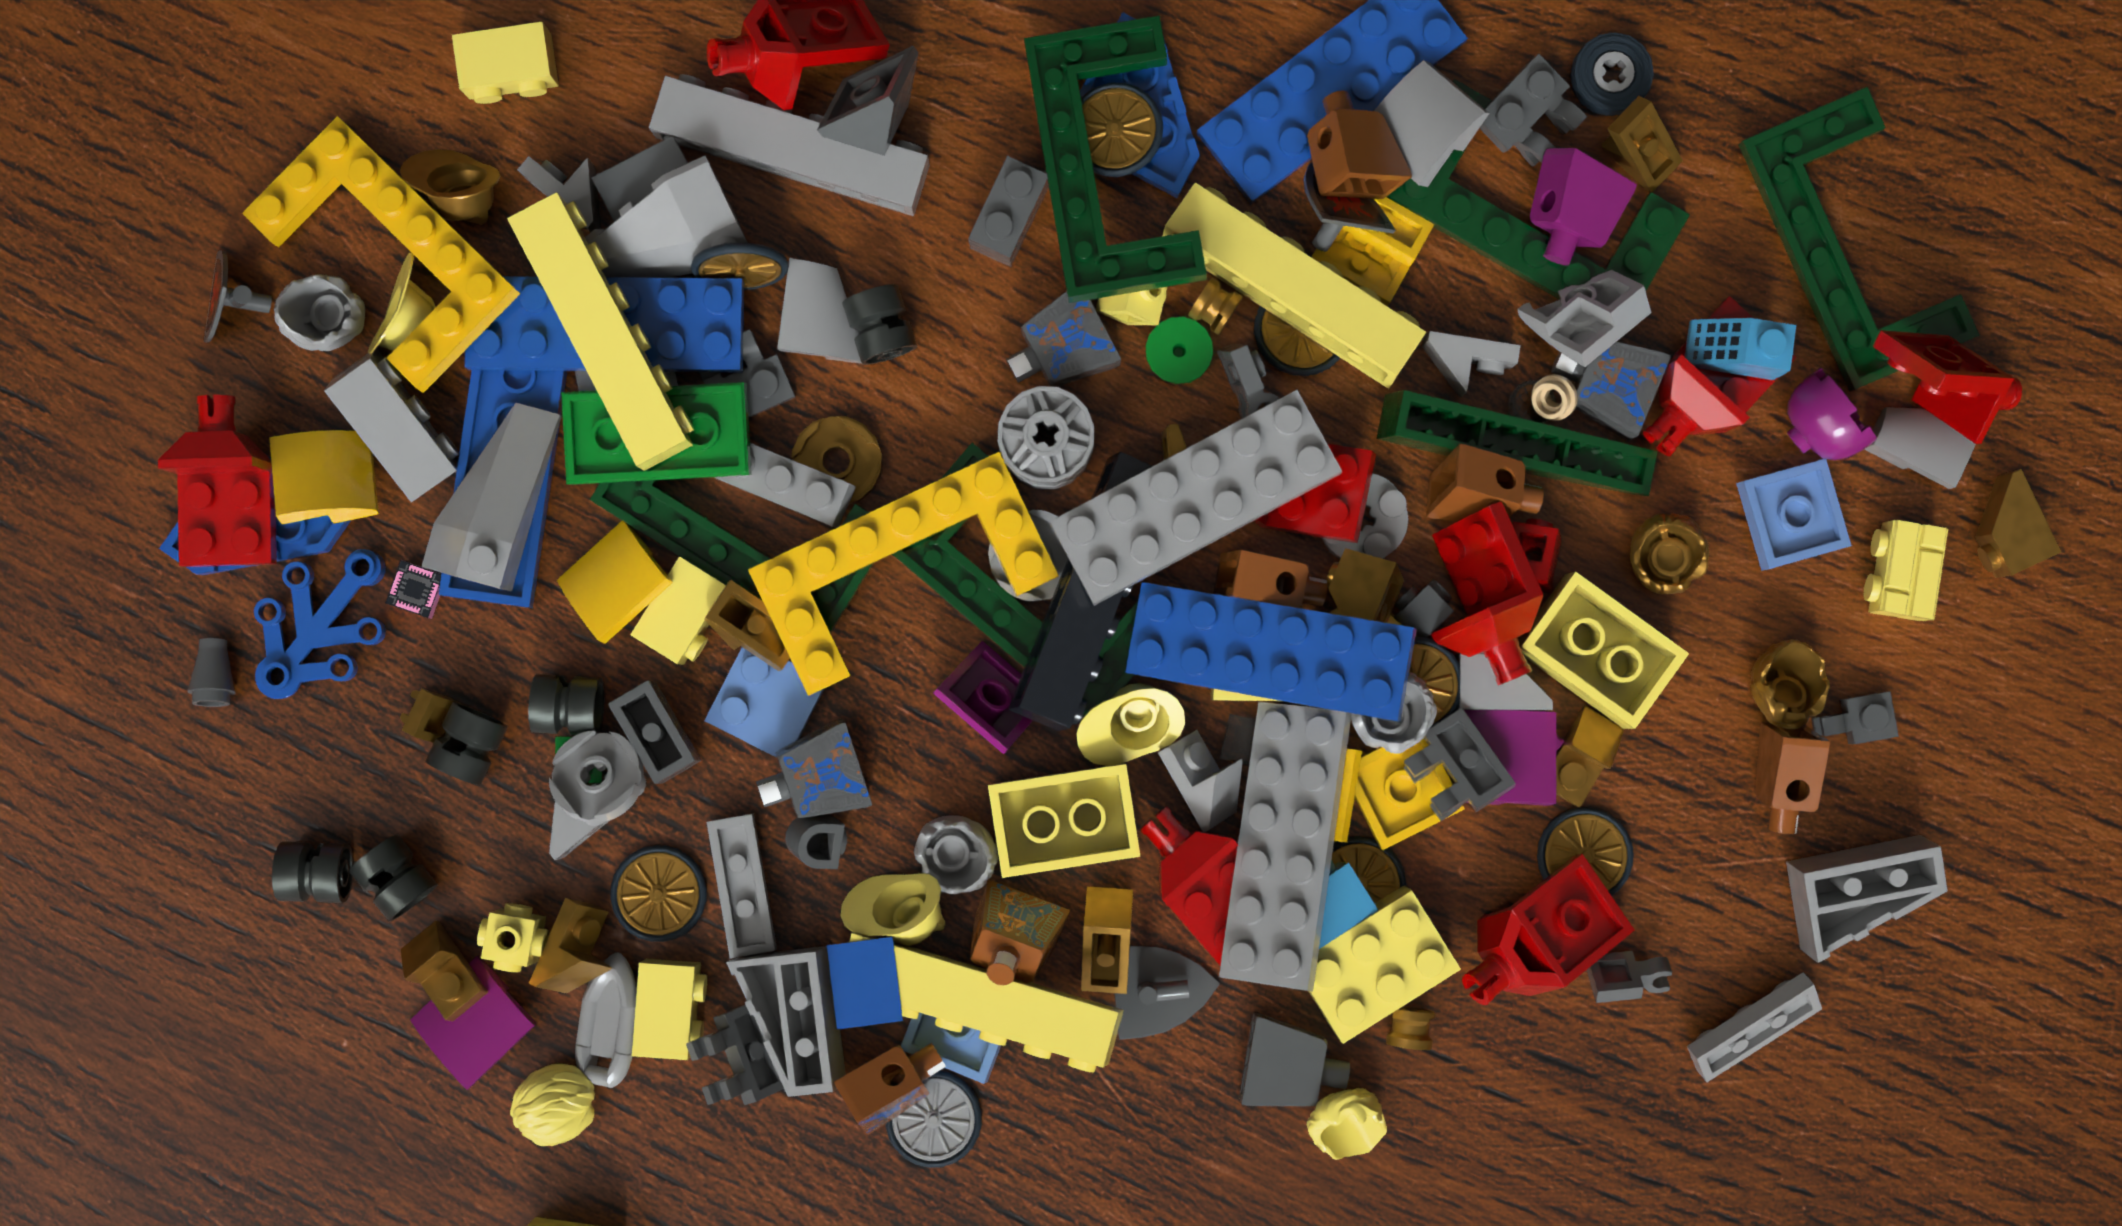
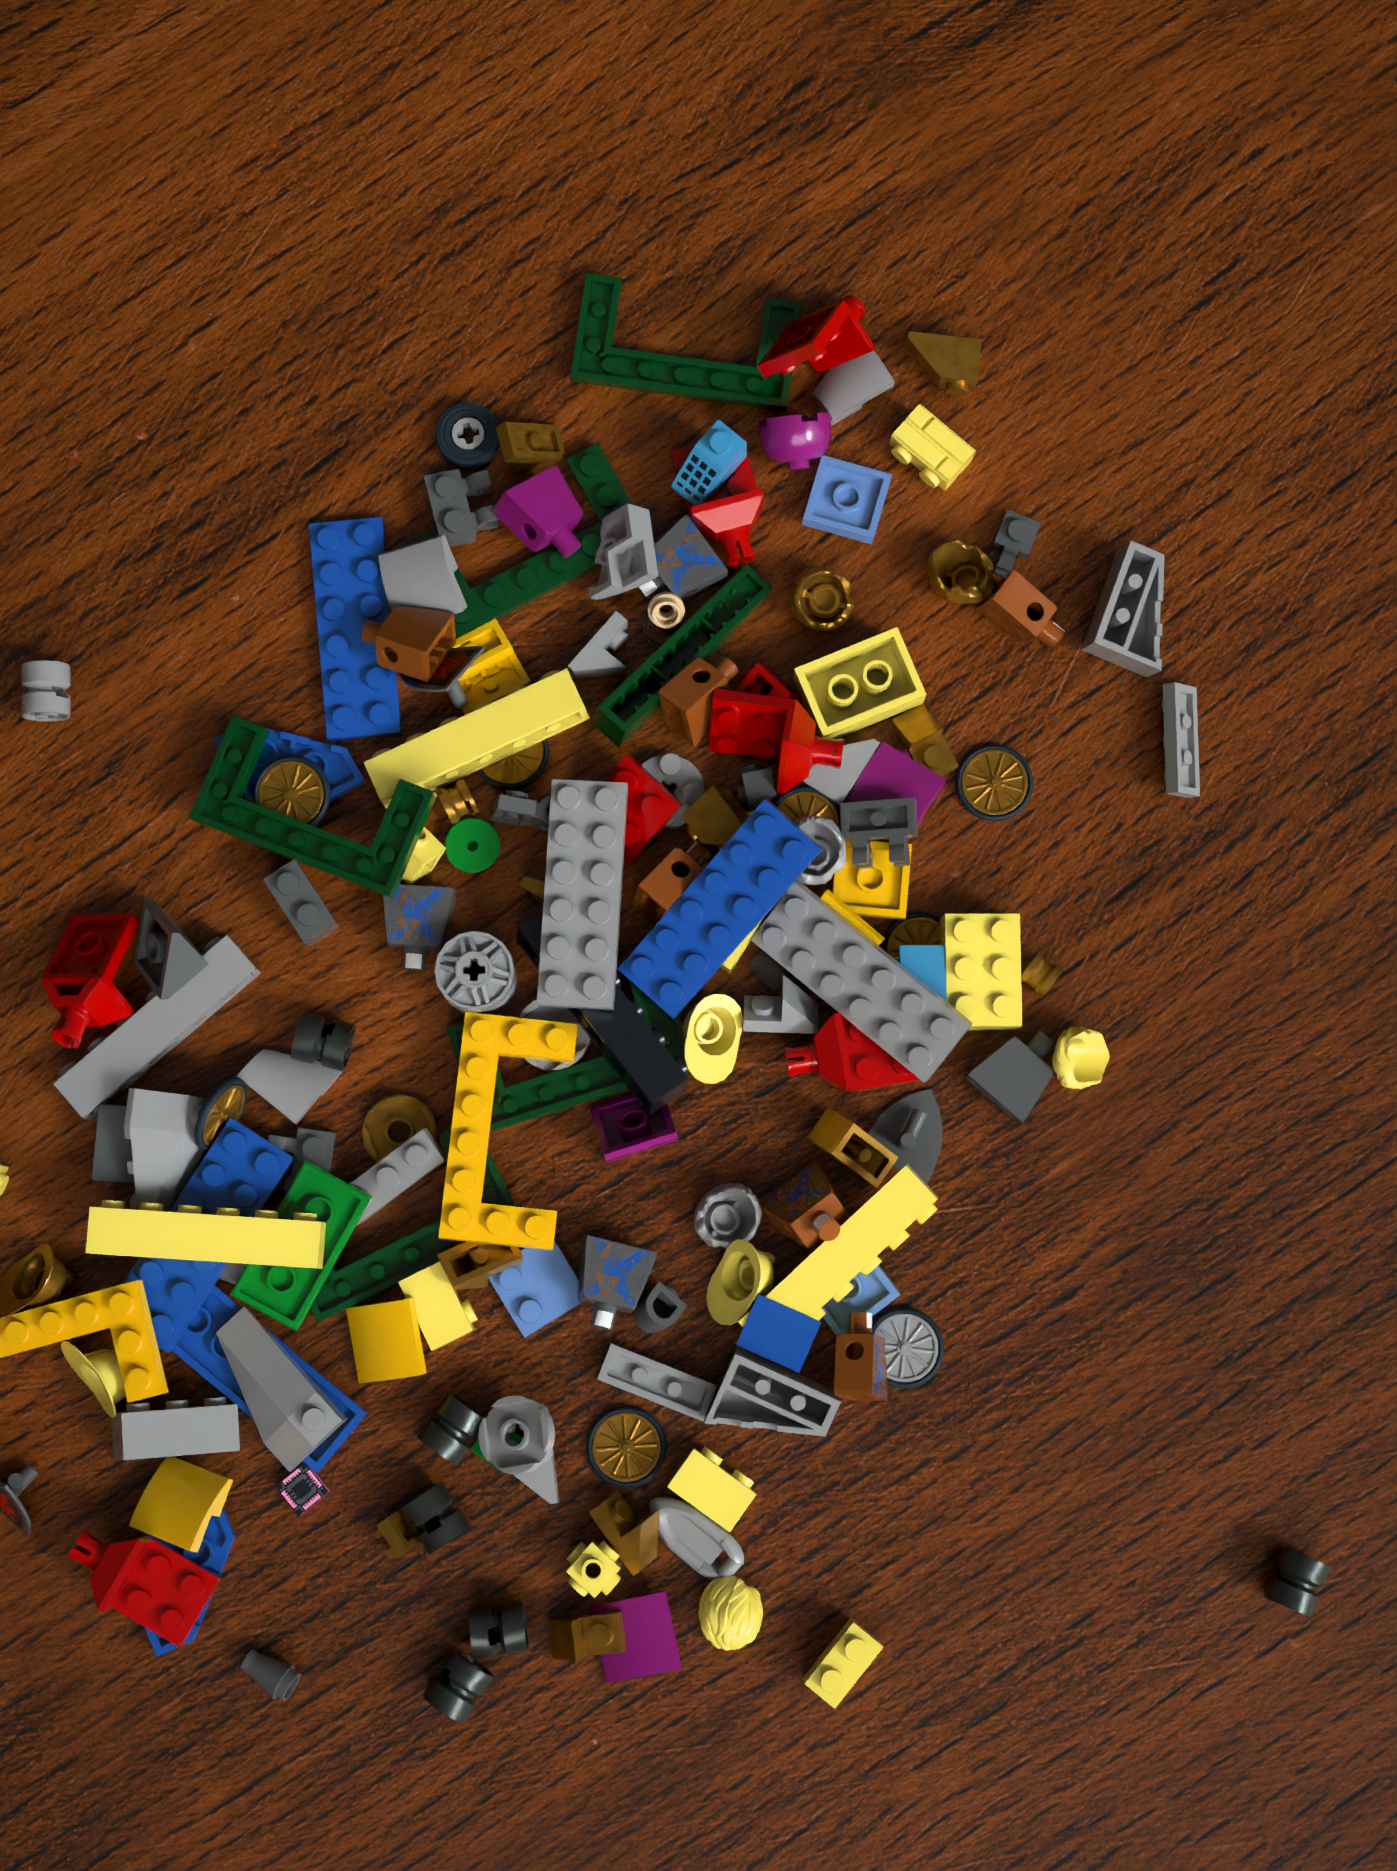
camera: 60 degrees left, 5 degrees down
(314, 629) = (285, 1580): blue plant -> none
(319, 312) = (62, 1435): light grey hair -> none
(578, 187) = (73, 1213): light grey slope -> none
(654, 732) = (511, 1376): dark grey brick -> none
(750, 1063) = (778, 1449): dark grey plate -> none
(1064, 820) = (750, 1124): light yellow brick -> none
(1547, 935) = (1032, 841): red plate -> none
(1622, 978) = (1093, 808): dark grey plate -> none

